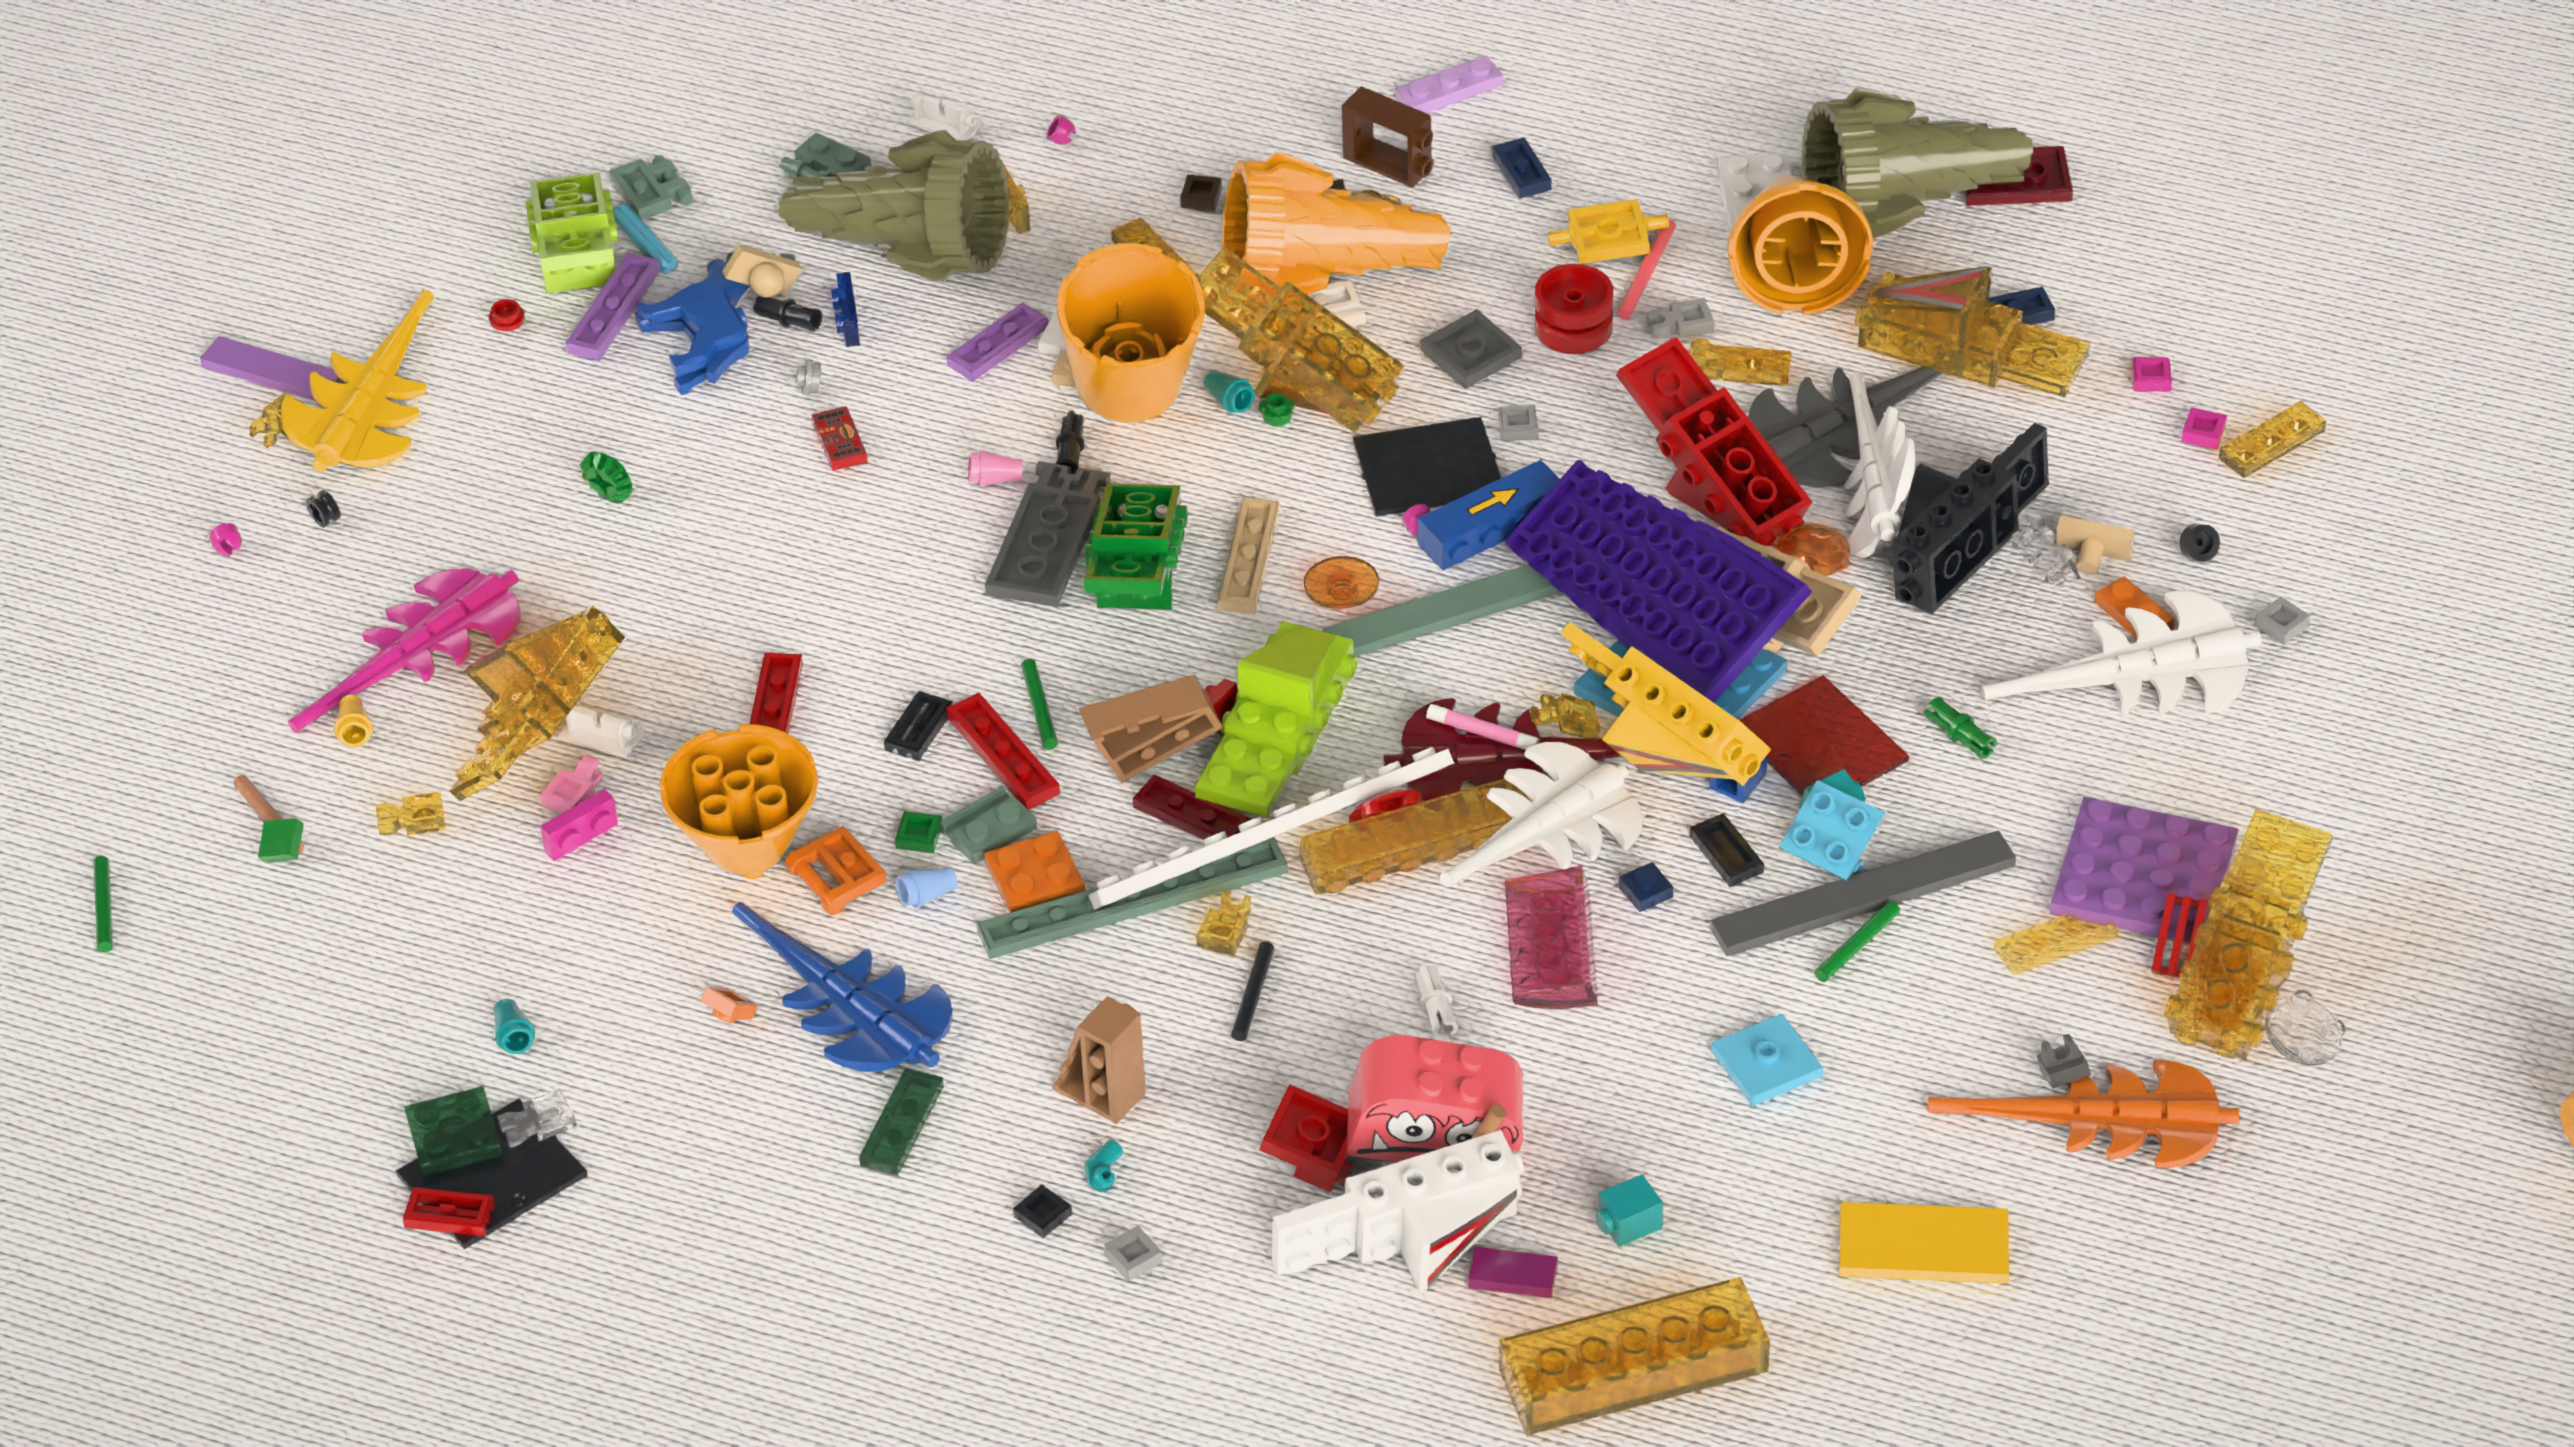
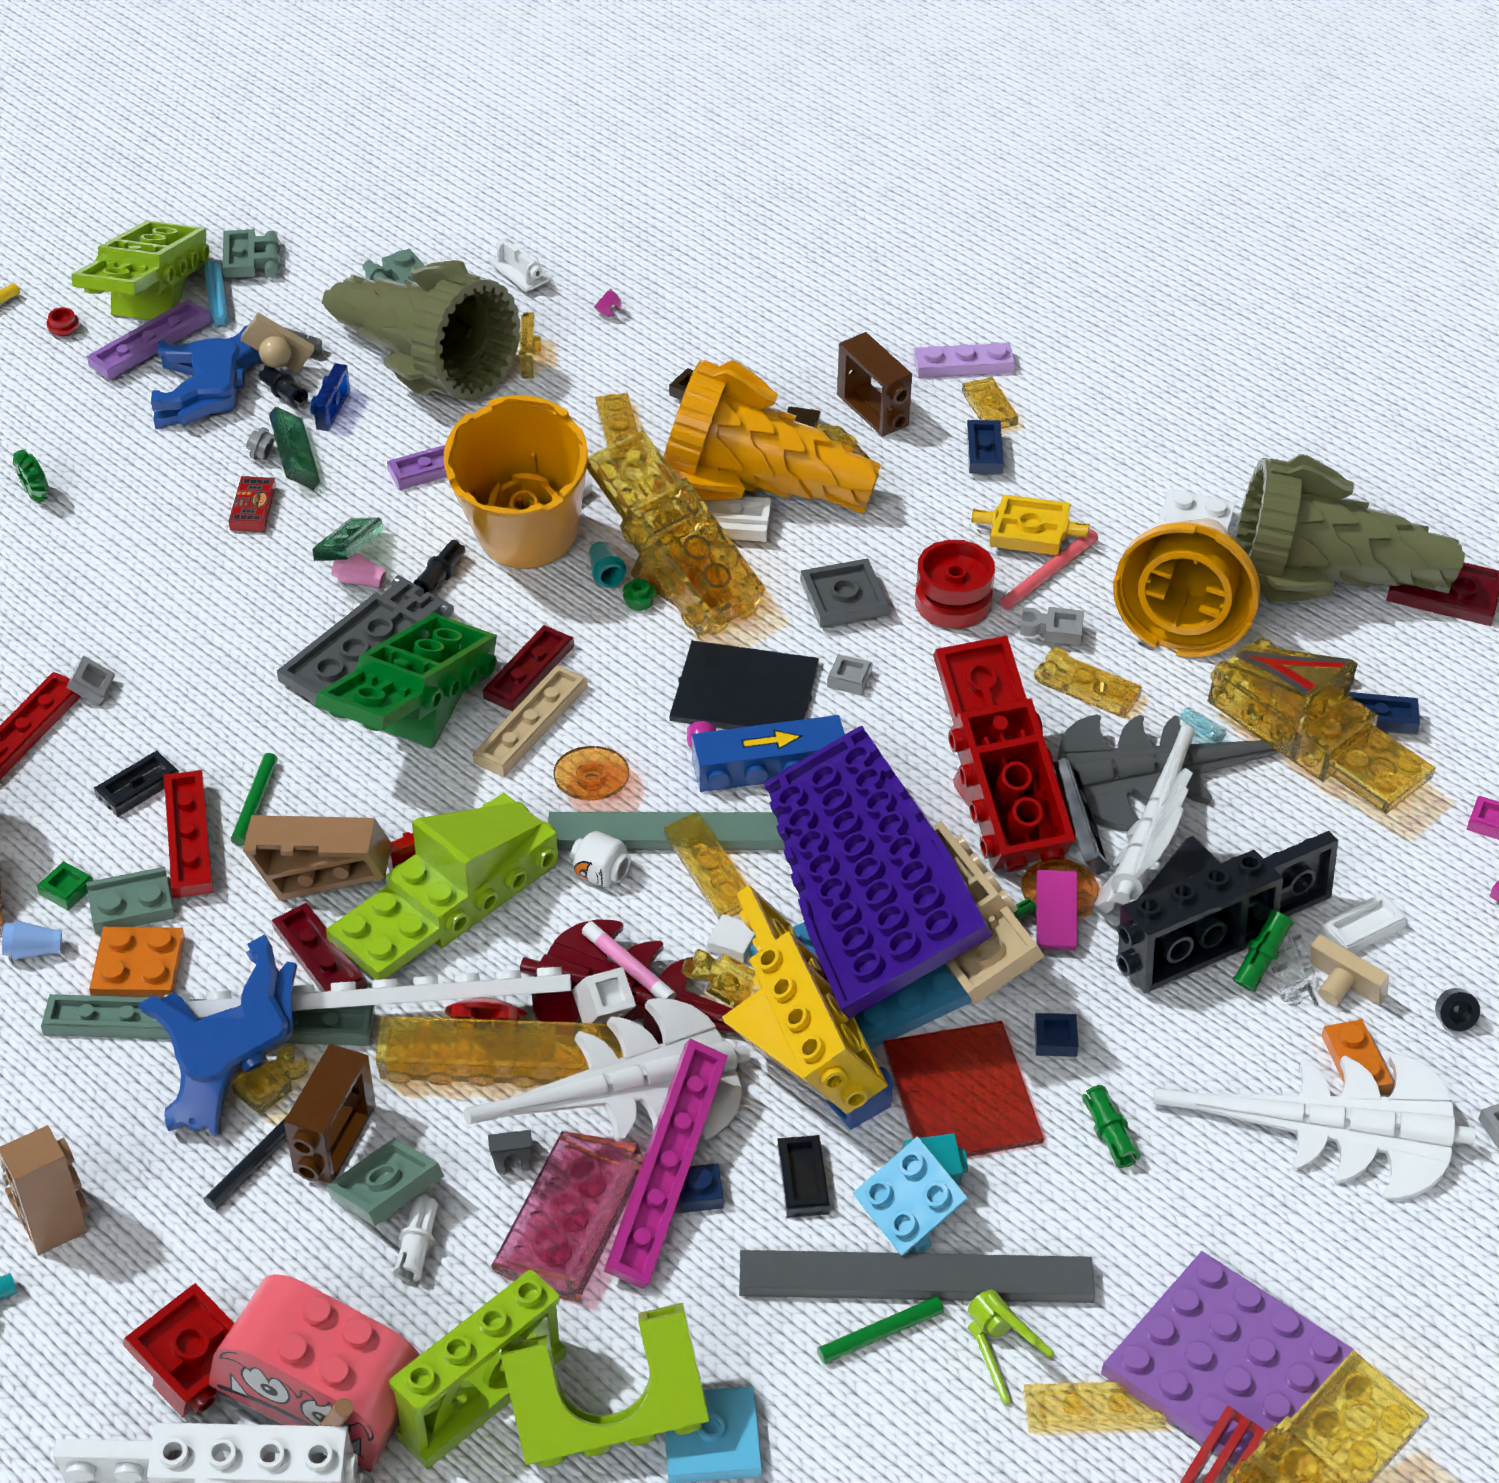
camera: 20 degrees right, 0 degrees up
(809, 648) = (90, 680): none -> light grey tile
(846, 370) = (294, 448): none -> clear green tile
(971, 441) = (347, 539): none -> clear green tile
(1175, 906) = (224, 1042): none -> blue animal
(1215, 509) = (528, 668): none -> dark red tile
(1307, 927) = (330, 1114): none -> reddish brown window
(1384, 965) = (385, 1181): none -> sand green plate
(1396, 653) = (600, 859): none -> white head
(1471, 903) = (510, 1144): none -> dark grey tile
(1485, 759) = (603, 996): none -> white brick
(1497, 628) = (706, 863): none -> clear yellow plate
(1499, 121) = (989, 402): none -> clear yellow plate
(1552, 680) = (731, 937): none -> white tile
(1564, 1066) = (462, 1375): none -> lime fence
(1615, 871) = (665, 1164): none -> dark pink plate
(1728, 1036) = (556, 1428): none -> lime arch
(1807, 482) = (1081, 816): none -> black tile
(1821, 554) = (1056, 910): none -> dark pink tile
(1866, 368) = (1203, 725): none -> clear light blue tile
(1876, 670) = (1056, 1034): none -> dark blue plate
(1946, 899) = (996, 1318): none -> lime plant
(2018, 545) = (1263, 950): none -> green pin
(2088, 496) = (1364, 923): none -> white tile

